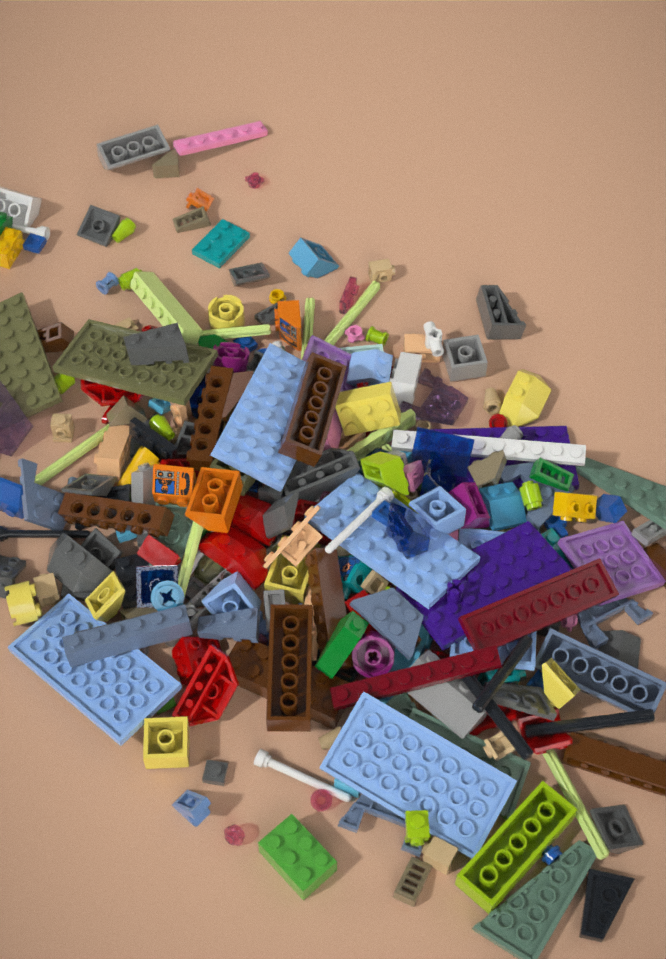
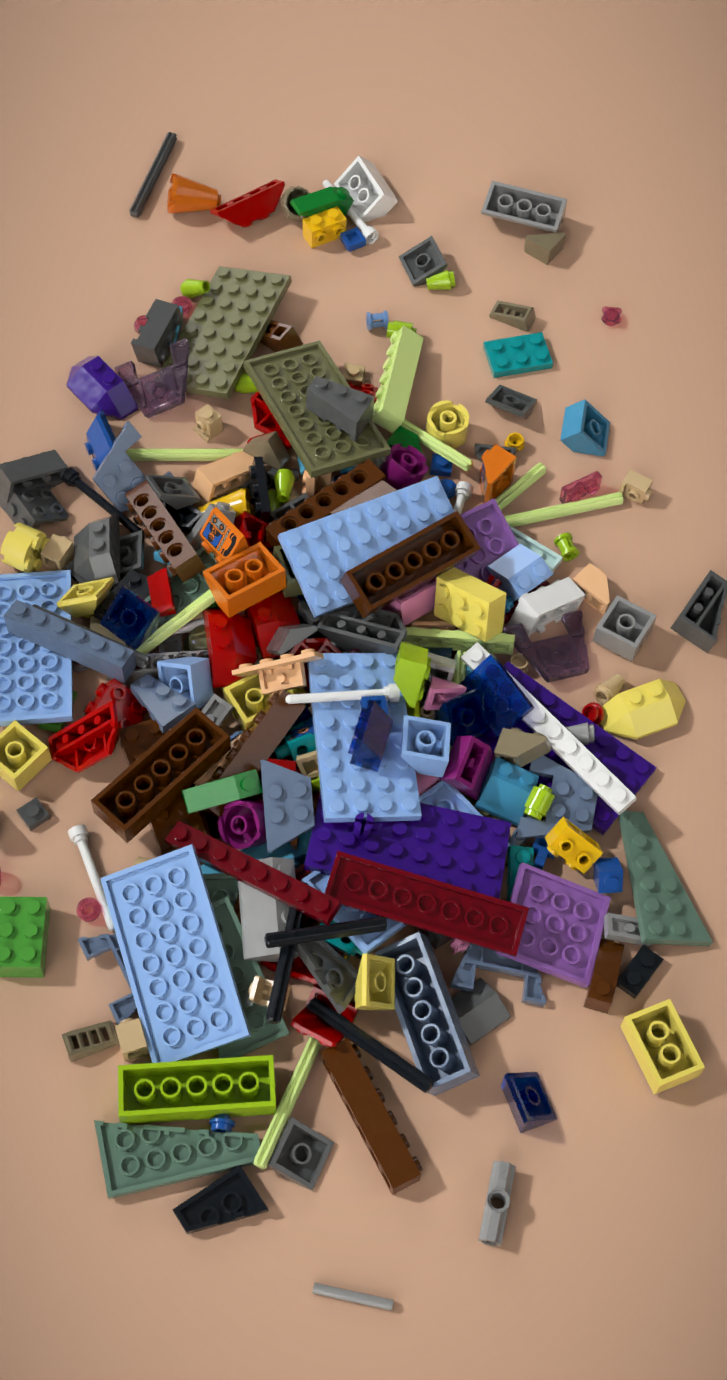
camera: 40 degrees right, 5 degrees up
(163, 587) = (119, 628): dark azure gear -> none
(199, 199) = (538, 299): orange bracket -> none
(220, 138) = (618, 252): bright pink plate -> none
(354, 333) = (549, 524): bright pink plate -> none
(417, 827) = (130, 997): lime bracket -> none
(433, 339) = (607, 587): white axle -> none
(541, 477) = (565, 795): green slope -> none

